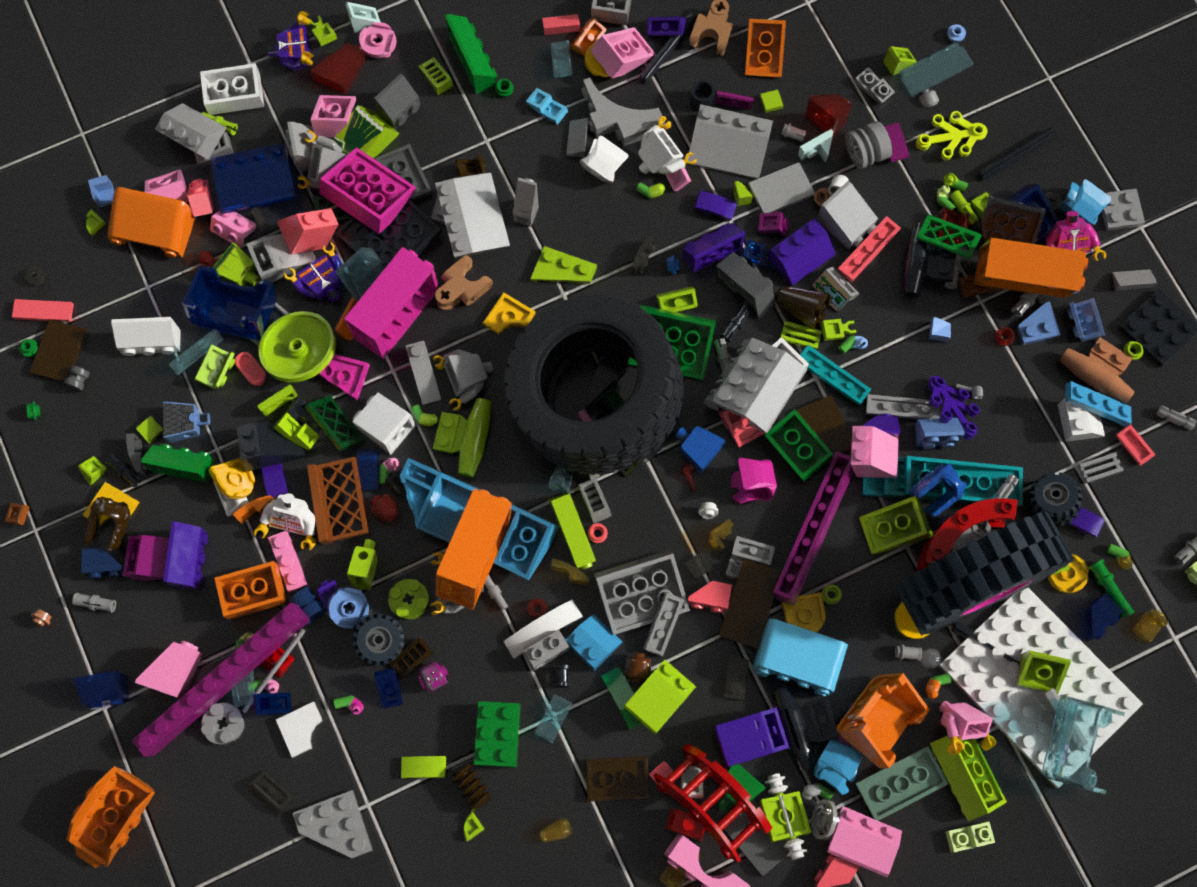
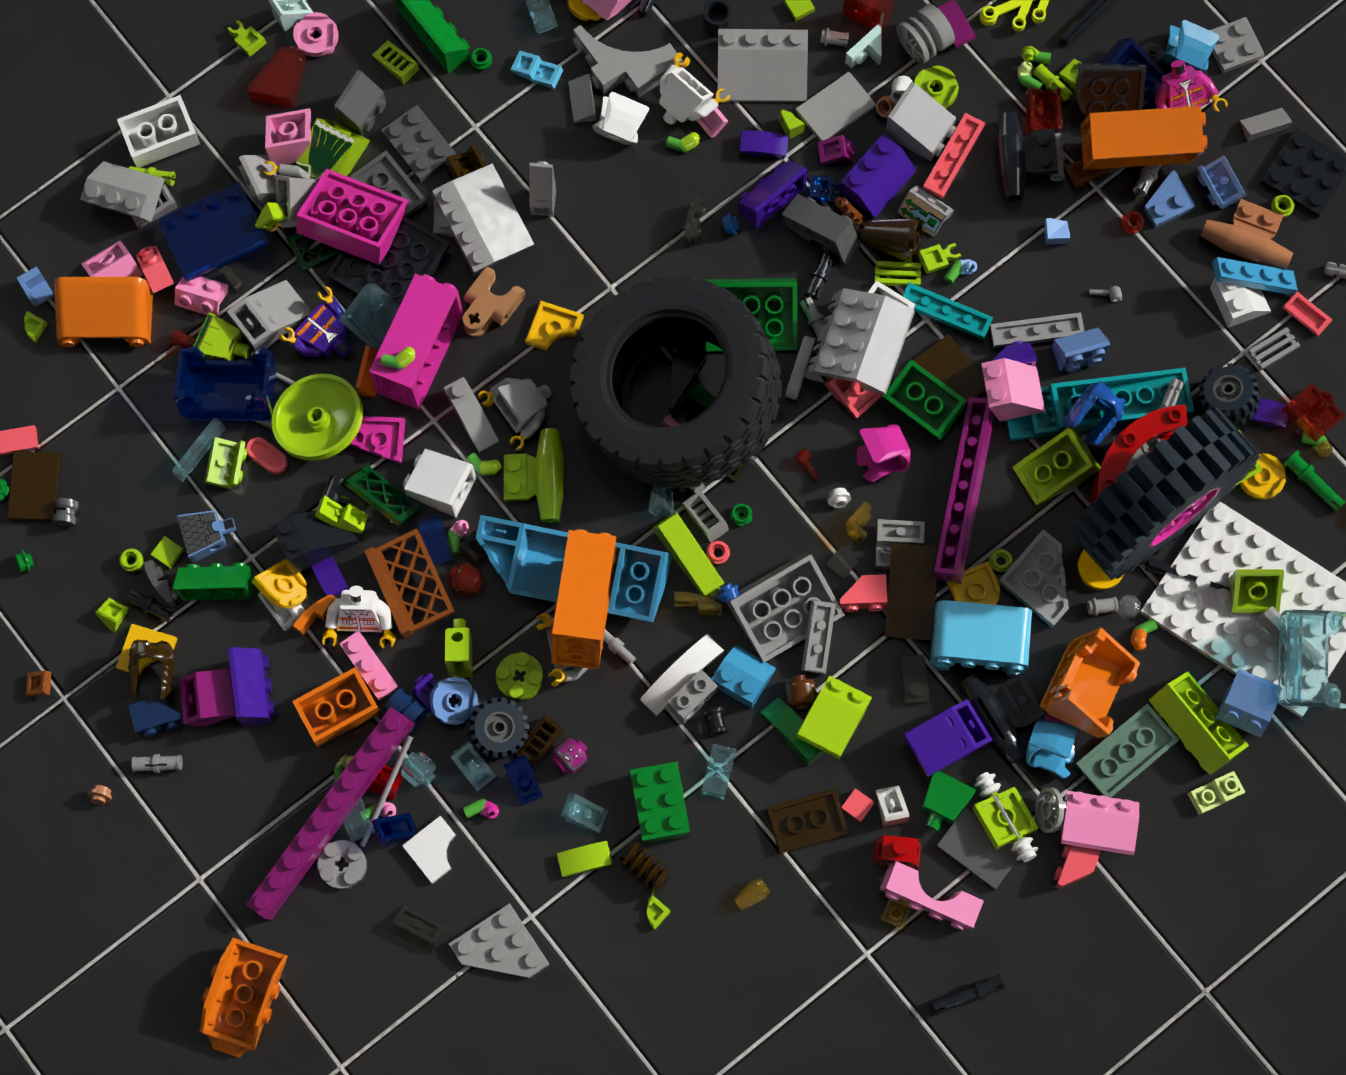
camera: 10 degrees left, 0 degrees up
(102, 689) = (195, 856): clear blue slope -> none
(114, 427) = (131, 553): none -> lime plate
(146, 336) = (136, 444): white slope -> none
(172, 670) = (270, 817): bright pink slope -> none
(277, 400) = (309, 484): lime tile -> none
(293, 45) = (218, 63): torso -> none
(301, 175) = (270, 216): none -> lime slope
(305, 658) = (418, 769): none -> clear light blue head
(308, 230) = (295, 279): coral slope -> none
(349, 666) = (472, 766): none -> clear light blue slope
(371, 315) = (399, 361): none -> arm
(432, 728) = (584, 813): none -> clear light blue slope
(437, 144) = (418, 143): none -> dark grey plate
(535, 602) = (669, 646): clear red plate -> none
(562, 267) = (601, 256): lime wing -> none
(596, 569) = (727, 592): none -> blue plate
(629, 505) = (741, 508): none -> green plate
(677, 300) = (745, 264): lime slope -> none
(699, 446) = (811, 427): blue torso -> none
(701, 395) = (800, 367): none -> light grey beam
(727, 785) = (933, 795): red fence -> none
(734, 100) = (756, 14): magenta slope -> none
(772, 274) = (849, 210): none -> dark orange gear
(817, 789) = (1034, 780): light grey arm -> none
(860, 617) = (1039, 579): none -> light grey plate
(876, 185) = (943, 77): none -> lime plate
(938, 387) = (1069, 297): dark purple plant -> none
(944, 225) = (1032, 108): green window -> none
(965, 723) = (1183, 667): bright pink torso -> none
(1015, 767) = (1249, 703): none -> medium blue slope
(1100, 615) = (1308, 514): clear blue slope -> none
(1126, 526) = (1317, 409): none -> clear red plate

